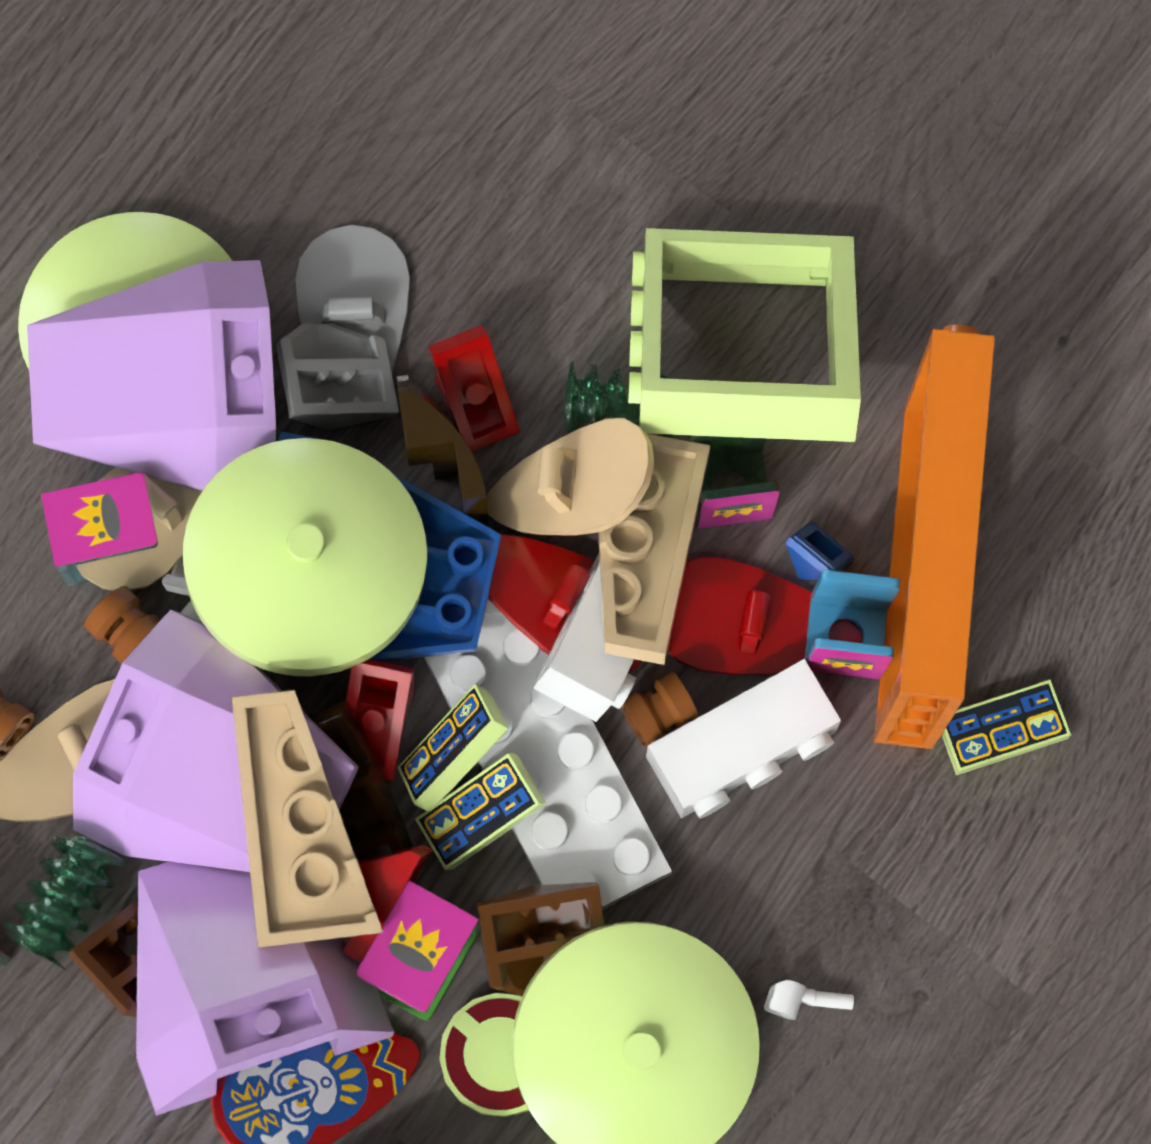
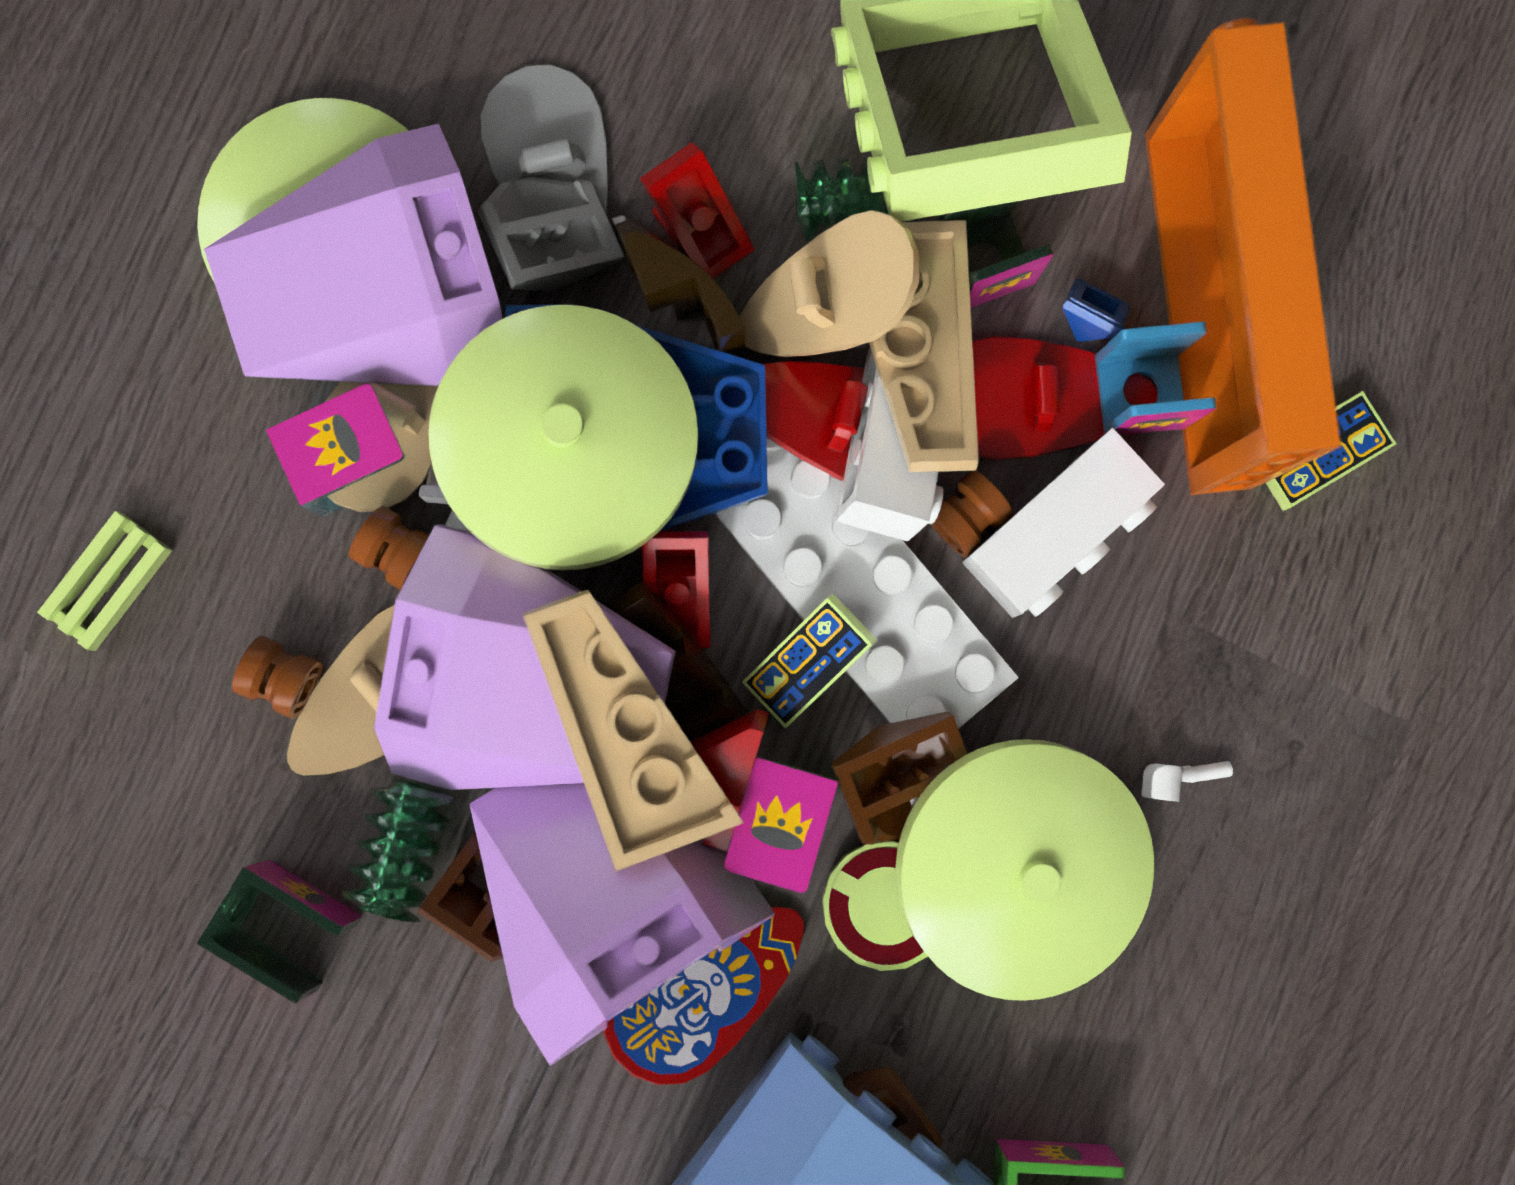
camera: 10 degrees left, 10 degrees up
(452, 748) = (766, 602): tile -> none

